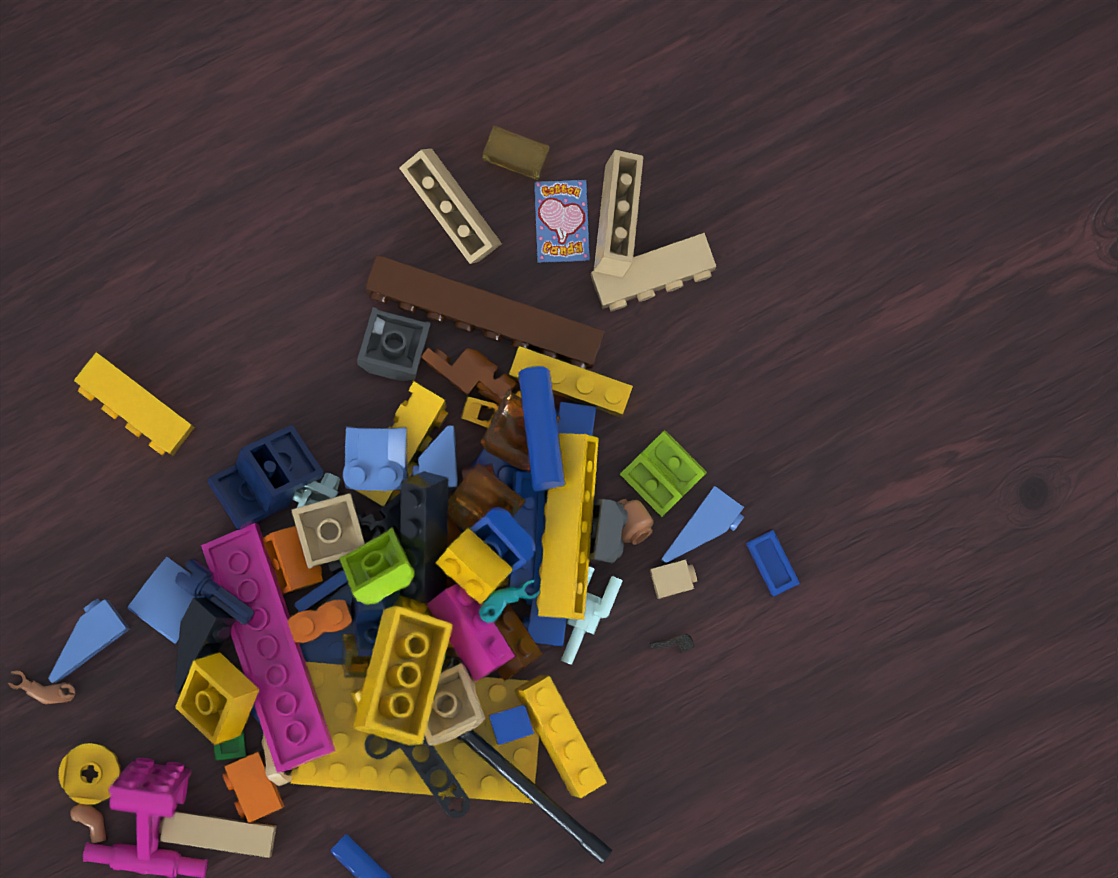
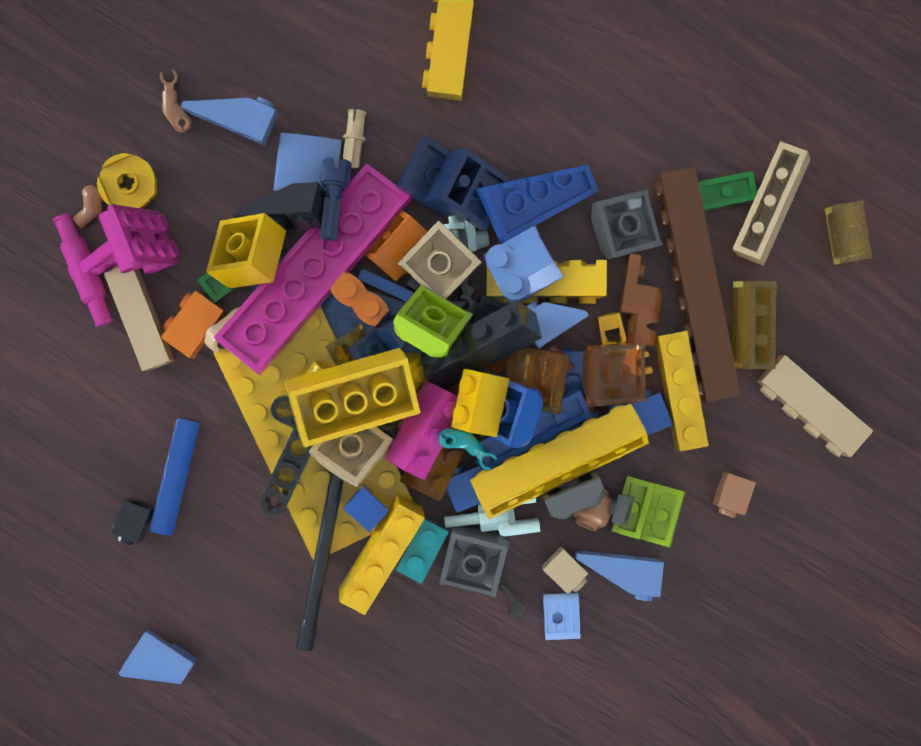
camera: 70 degrees right, 5 degrees up
(170, 542) = (354, 137): none -> tan axle
(322, 416) = (531, 200): none -> blue wing
(416, 237) = (728, 190): none -> green plate
(541, 428) = (629, 391): blue brick -> none
(548, 283) = (754, 324): none -> clear yellow brick
(561, 221) = (812, 304): sticker -> none
(579, 697) = (422, 550): none -> teal brick
(616, 656) = (474, 560): none -> dark grey slope
(618, 213) = (848, 350): tan brick -> none
(645, 495) = (621, 509): none -> dark grey plate
(691, 388) = (733, 494): none -> nougat brick
(712, 606) = (561, 616): none -> light blue piece
(772, 563) = (626, 645): blue tile -> none

